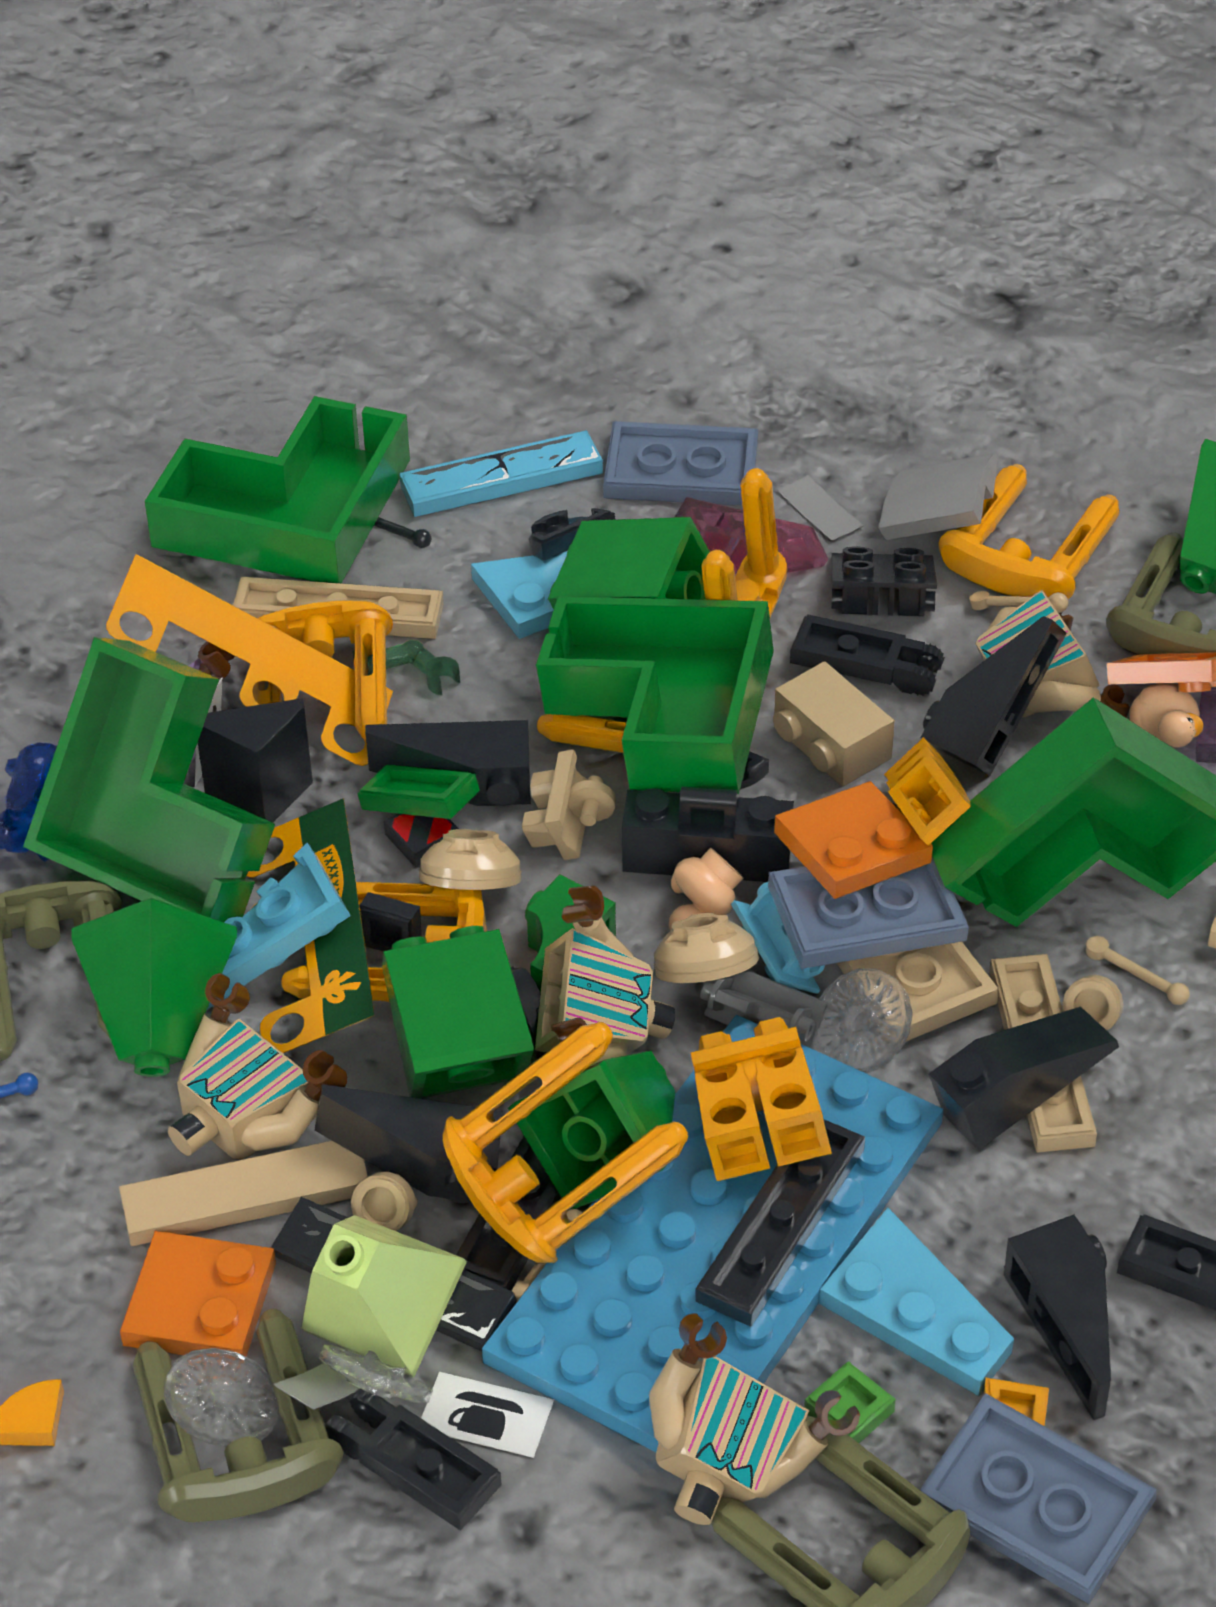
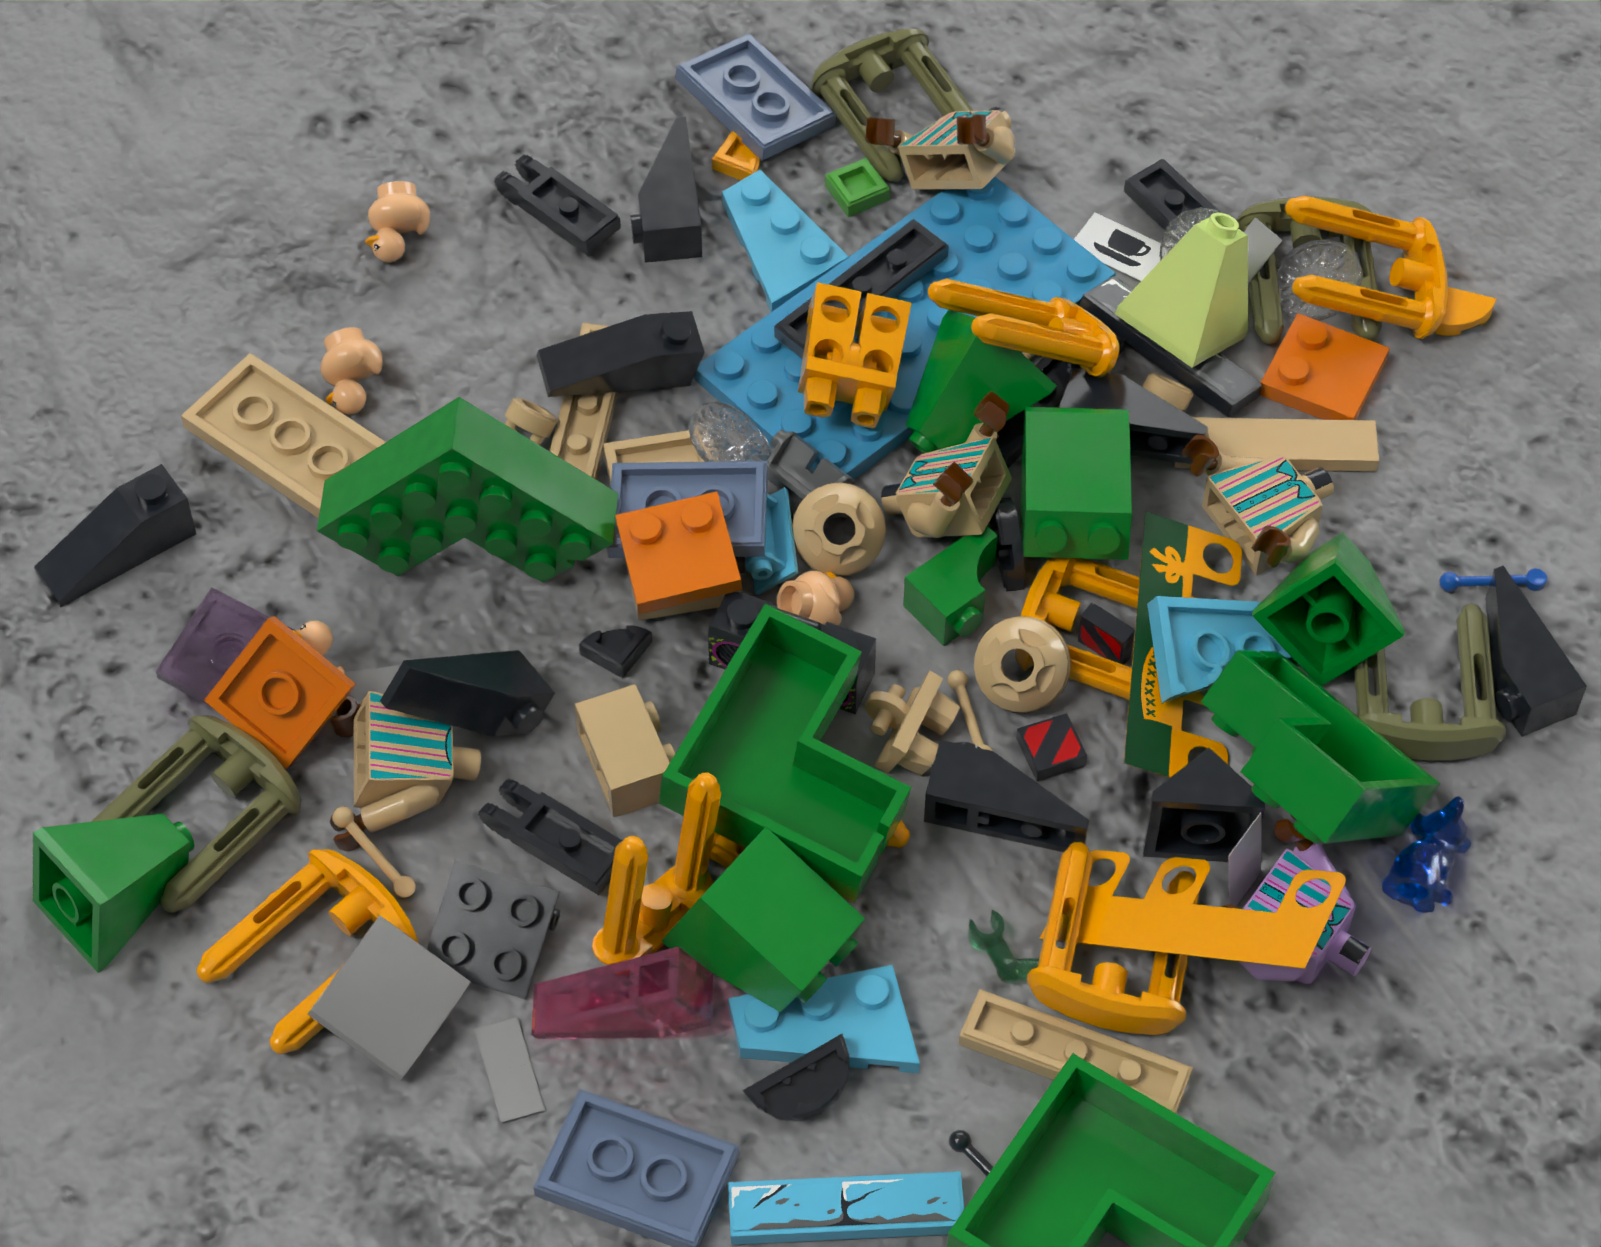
camera: 165 degrees left, 10 degrees up
(85, 1423) = (1419, 271): none -> light orange piece
(418, 791) = (1049, 763): green tile -> none
(490, 818) = (958, 680): none -> tan hinge
(926, 791) = (587, 581): light orange slope -> none

